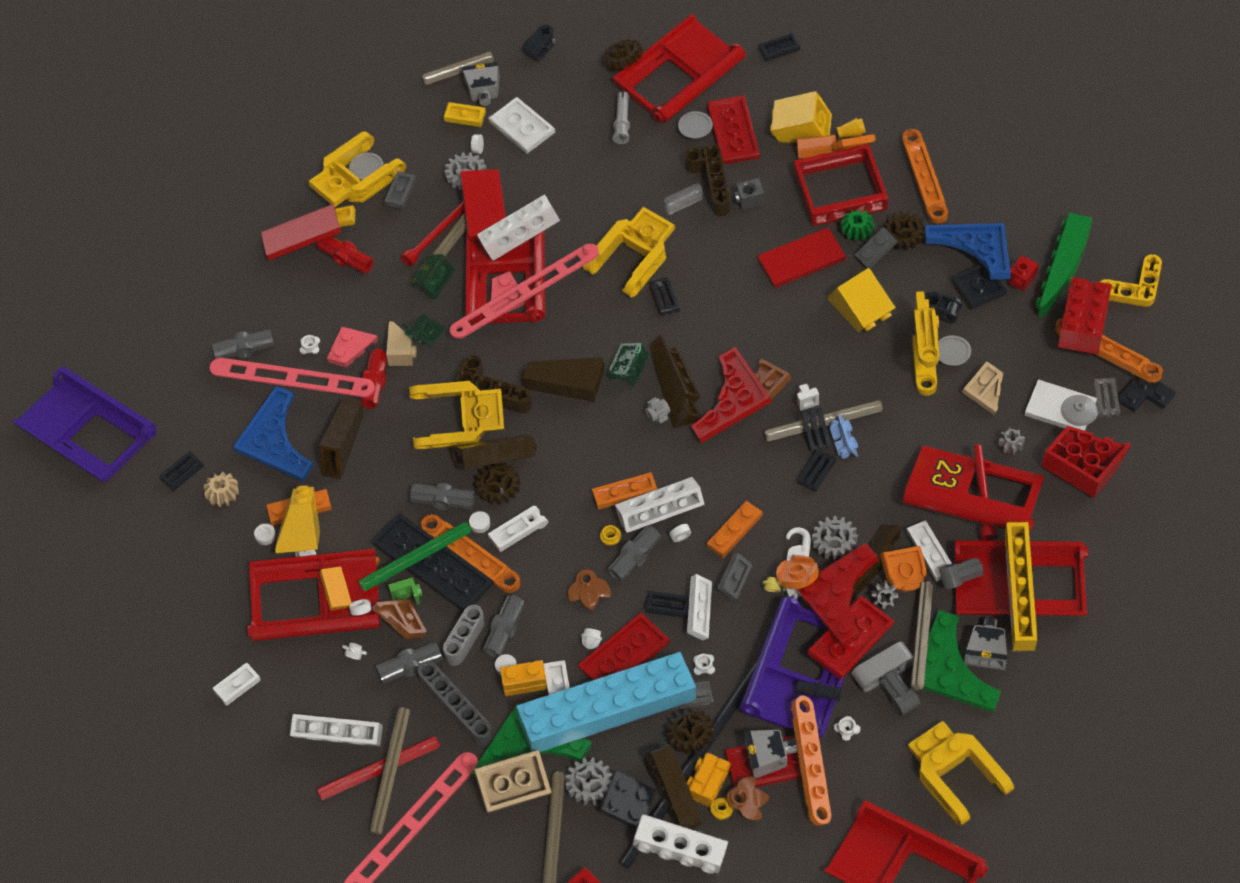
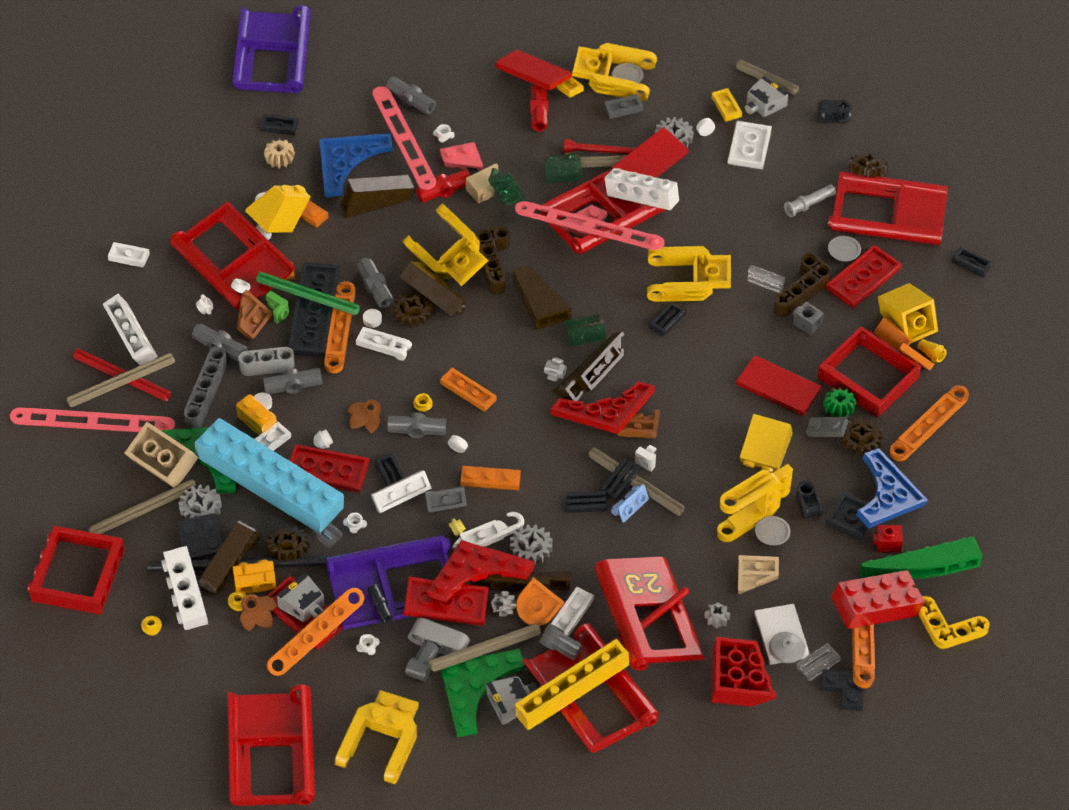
camera: 50 degrees right, 5 degrees down
(335, 588) = (245, 262): light orange tile -> none
(659, 504) = (470, 415): white brick -> none
(797, 572) = (474, 532): orange tile -> none

